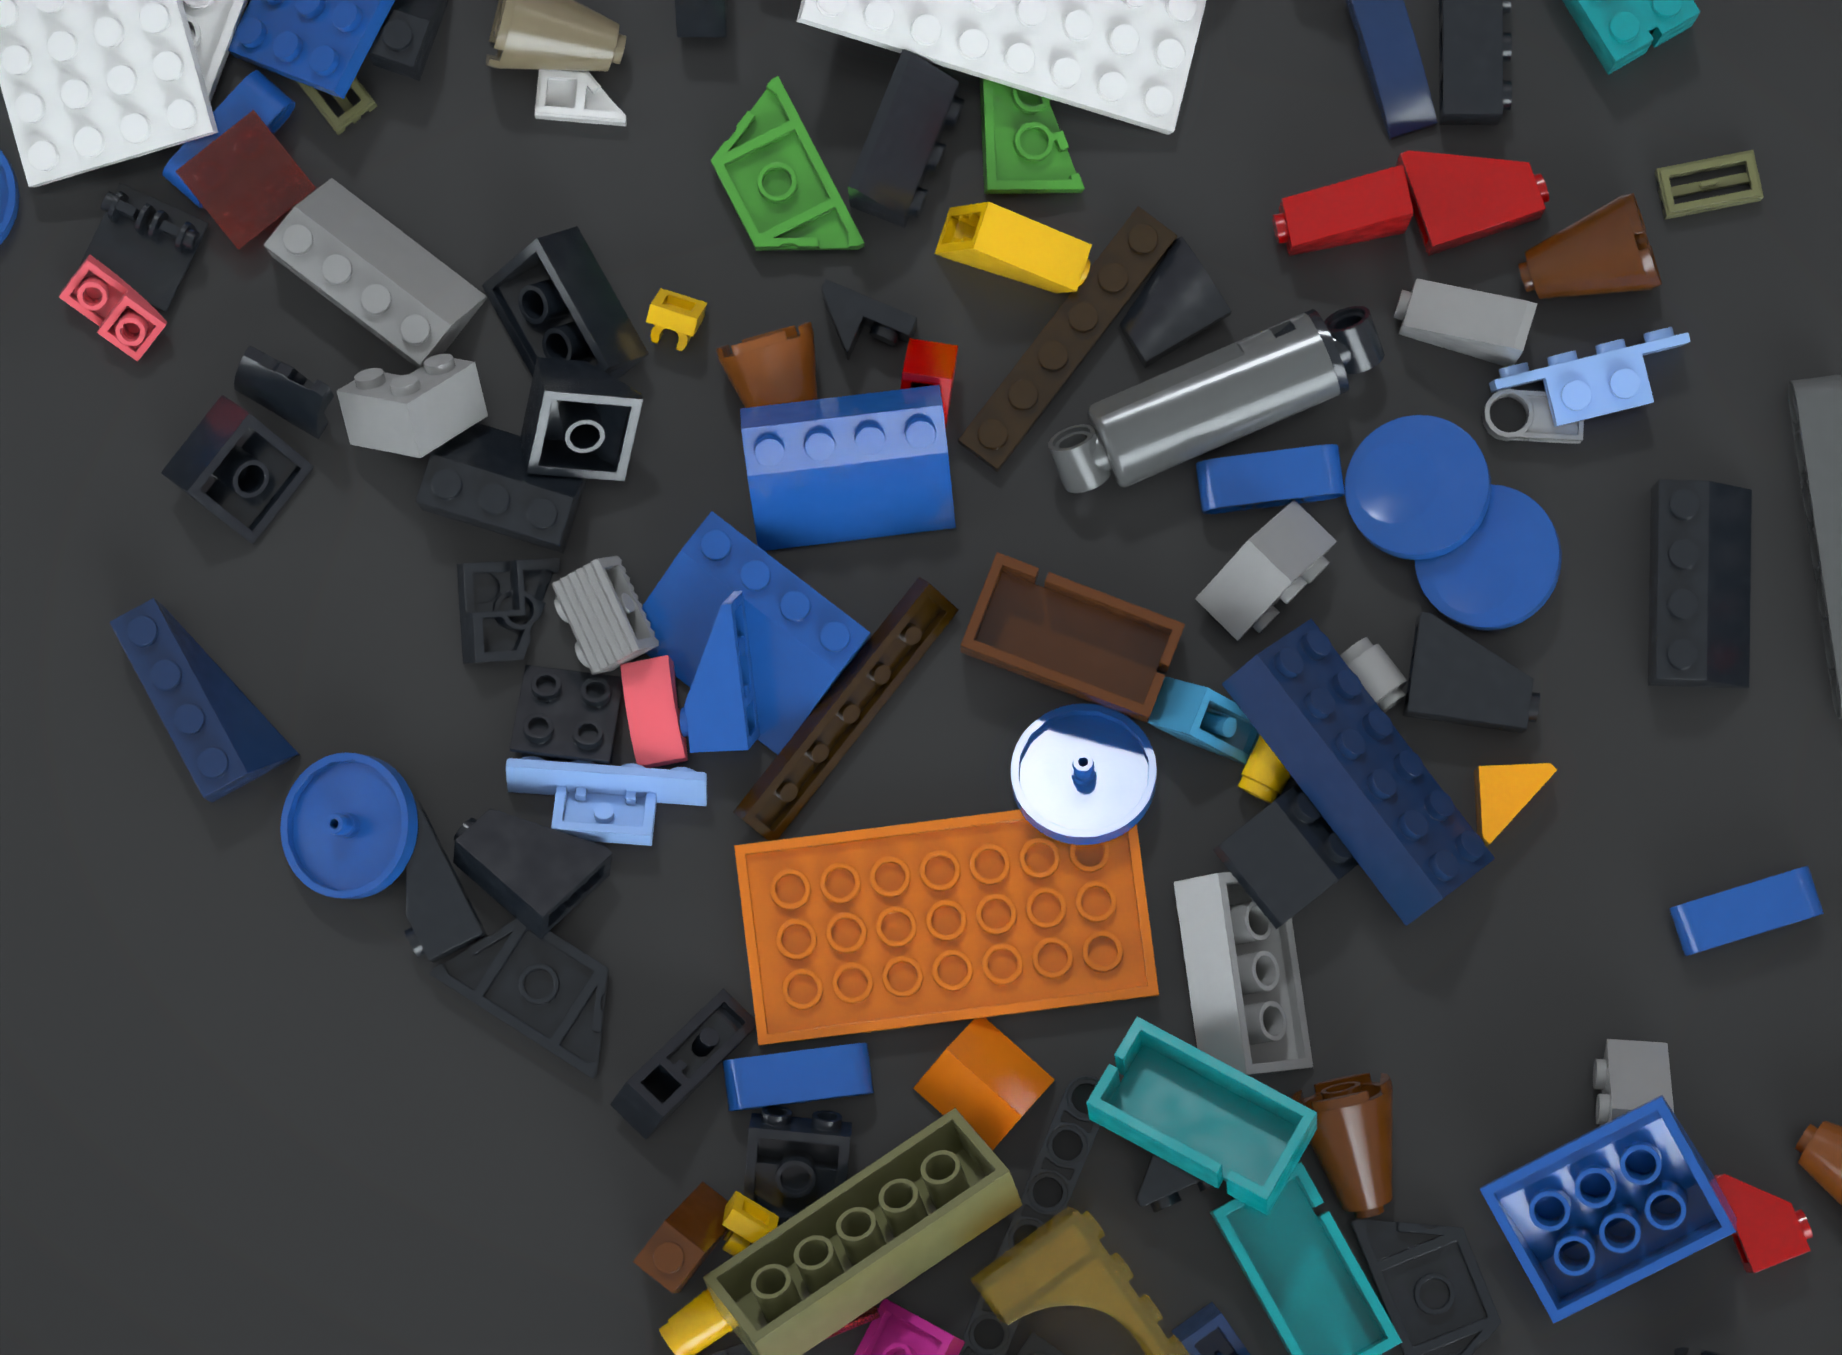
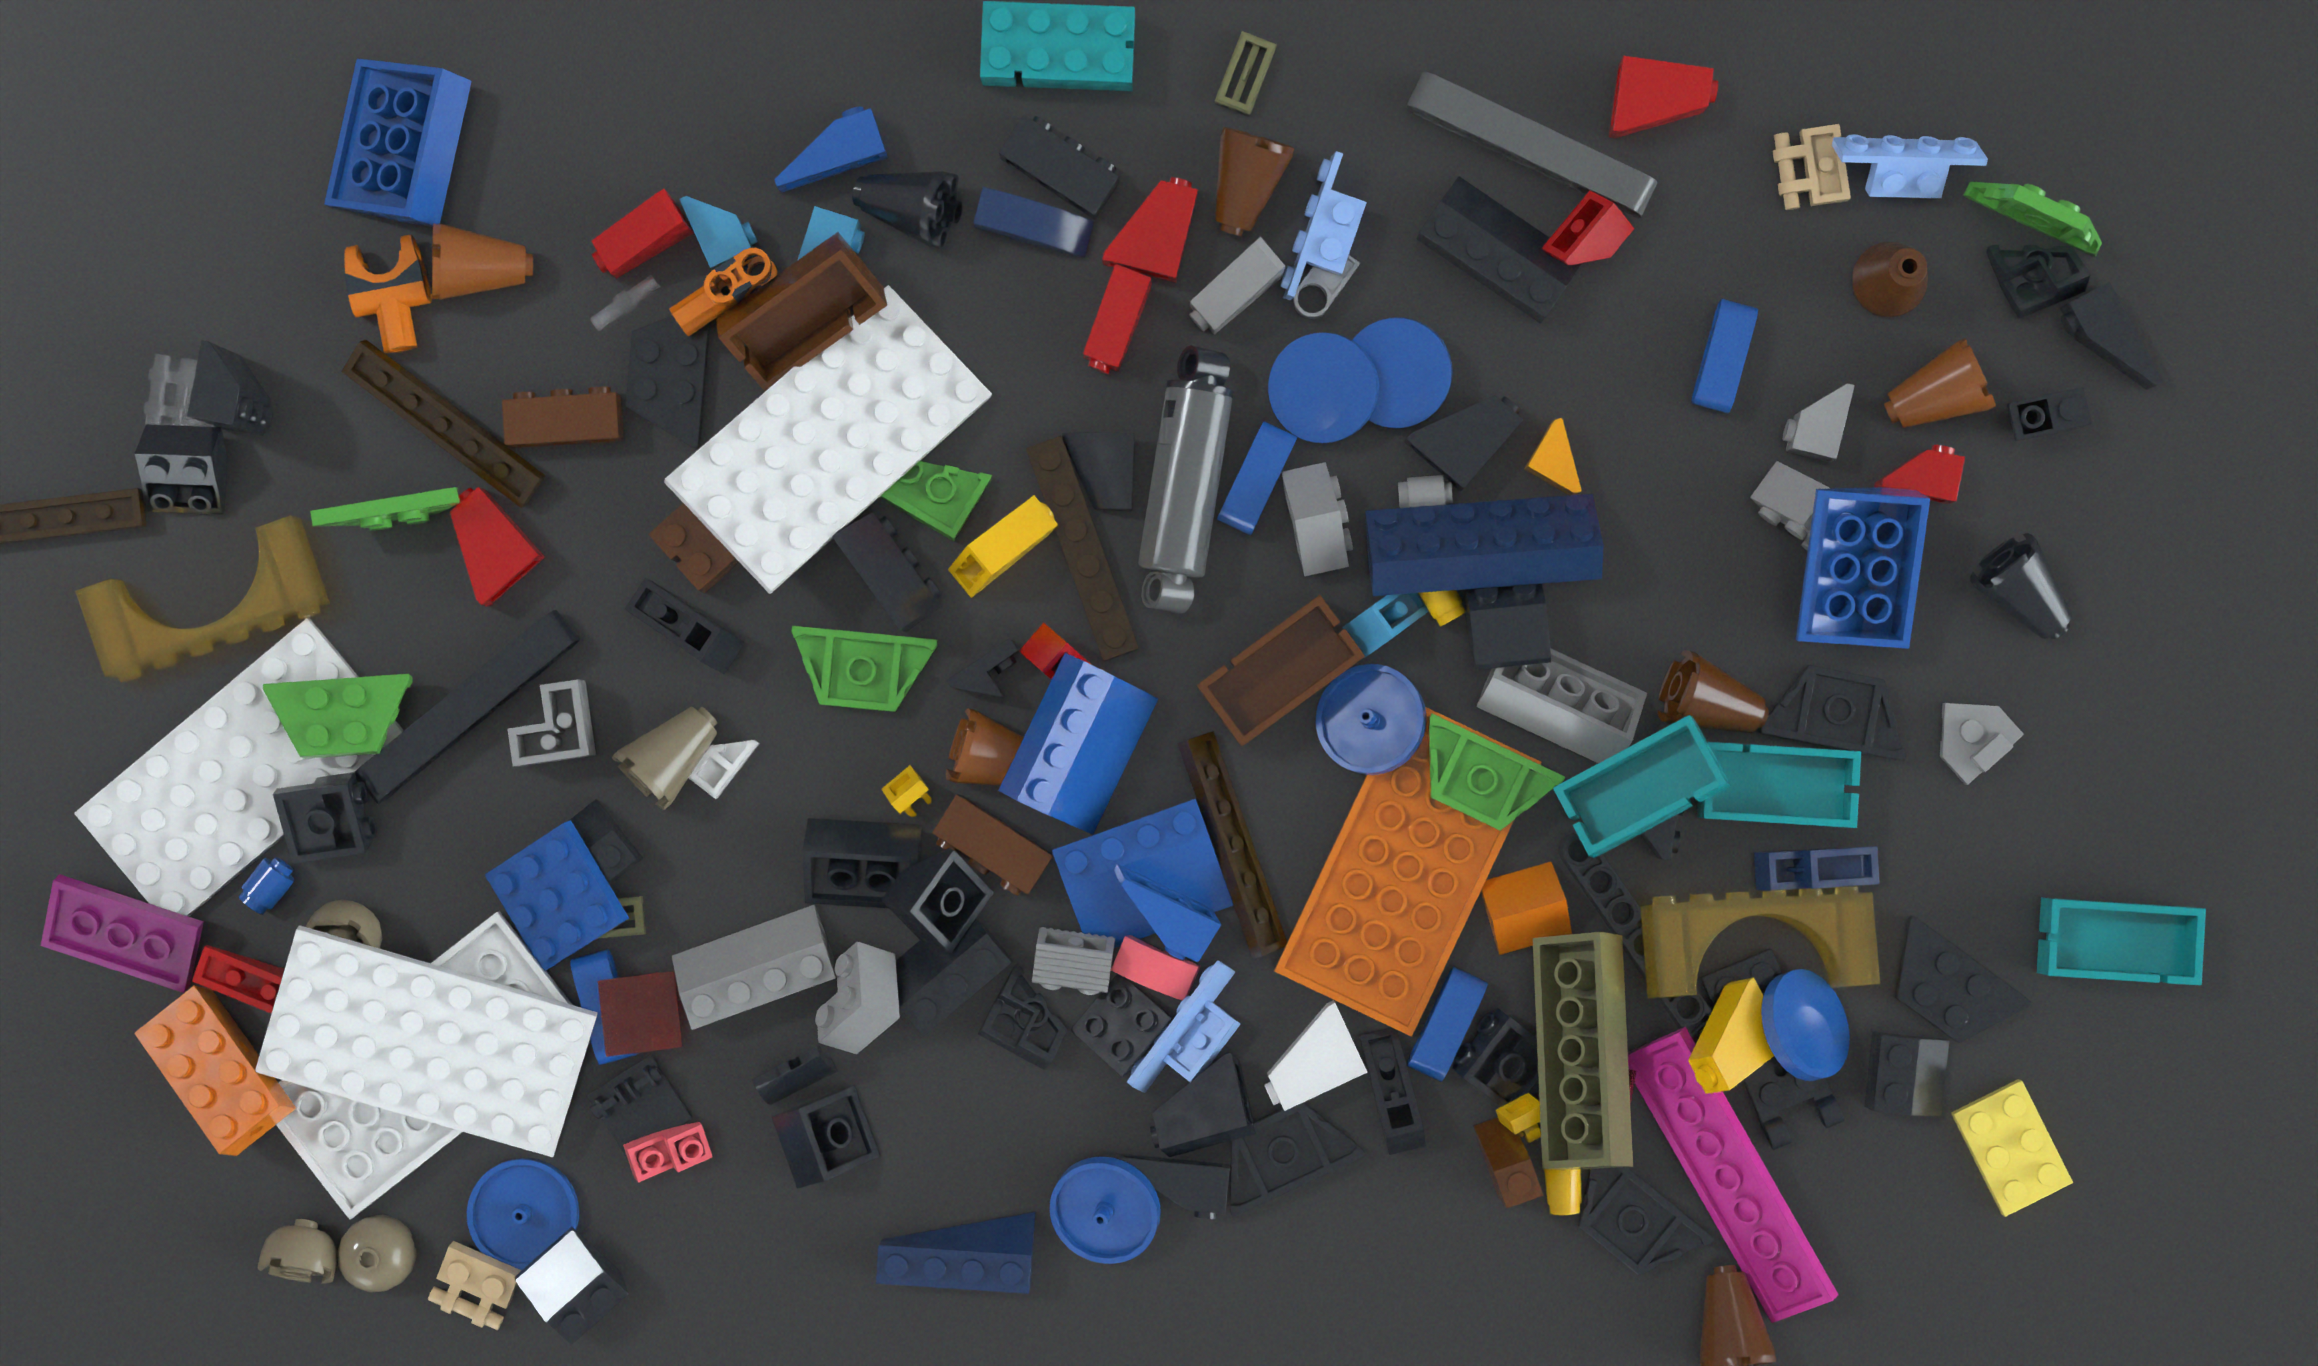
camera: 55 degrees left, 5 degrees up
(664, 955) = (1315, 1061): none -> white slope
(675, 446) = (992, 845): none -> reddish brown brick
(1100, 936) = (1482, 775): none -> bright green wing
(1738, 1066) = (1819, 427): none -> light grey slope
(1784, 670) = (1589, 232): none -> red slope

